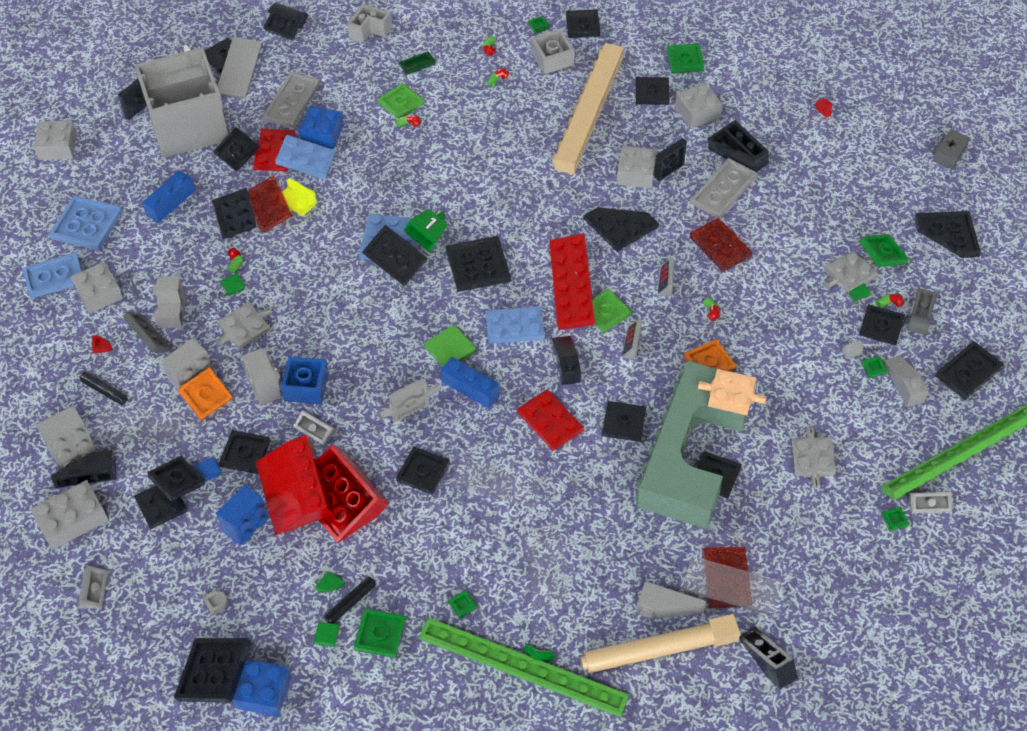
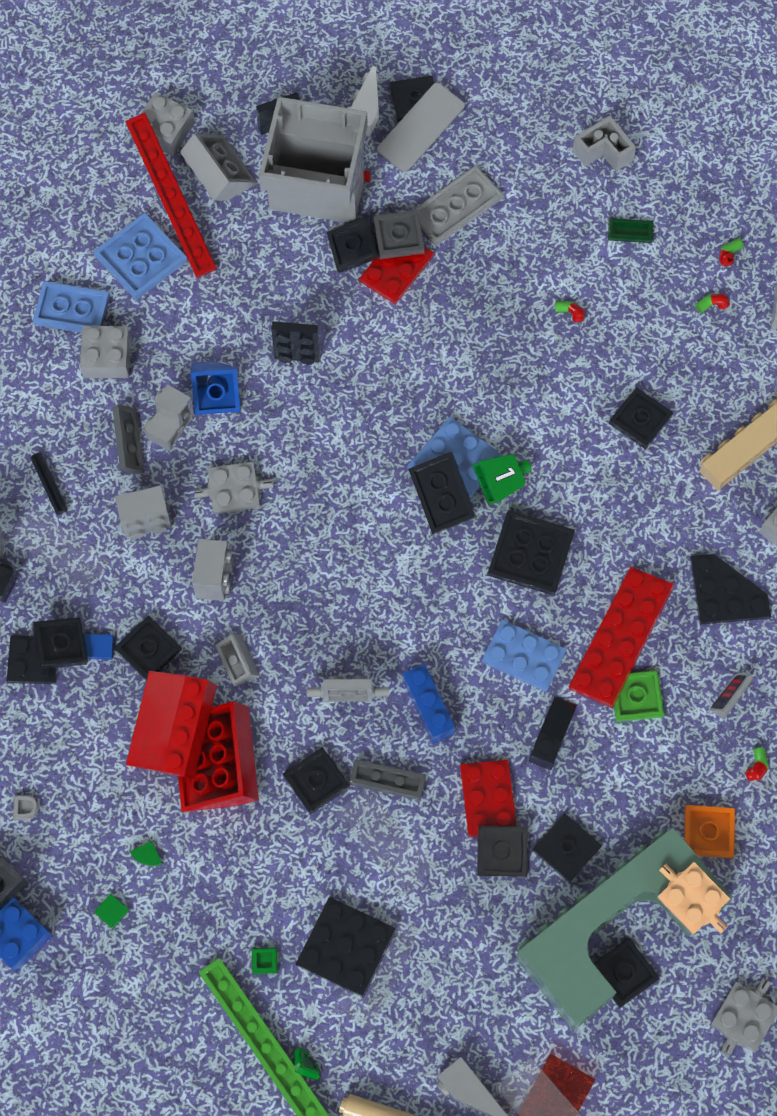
camera: 30 degrees right, 15 degrees up
(86, 175) = (171, 195): none -> red tile
(100, 345) = (74, 426): red tile -> none
(108, 148) = (217, 166): none -> light grey slope
(168, 196) = (244, 271): blue brick -> none
(193, 270) = (214, 388): none -> blue slope
(204, 394) = (144, 554): orange plate -> none
(232, 284) = (251, 426): green tile -> none
(236, 260) = (273, 395): bright green arm -> none
(242, 515) = (100, 729): blue brick -> none
(264, 127) = (398, 234): none -> dark grey plate
(269, 204) = (346, 341): clear red plate -> none
(285, 20) = (510, 86): black brick -> none
(299, 197) = (383, 350): neon yellow bracket -> none
(305, 157) = (423, 299): medium blue plate -> none
(305, 380) = (255, 599): blue brick -> none
(322, 126) = (464, 267): blue brick -> none
(350, 600) = (155, 887): black axle -> none
(380, 633) = (163, 944): green plate -> none
(401, 101) = (579, 276): bright green tile -> none
(450, 344) = (436, 643): bright green tile -> none
(473, 443) = (387, 779): none -> dark grey plate
(496, 156) = (641, 418): none -> black plate
(515, 562) = (346, 947): none -> black plate
(582, 444) = (502, 851): none -> black plate
(632, 340) = (640, 752): light grey slope -> none

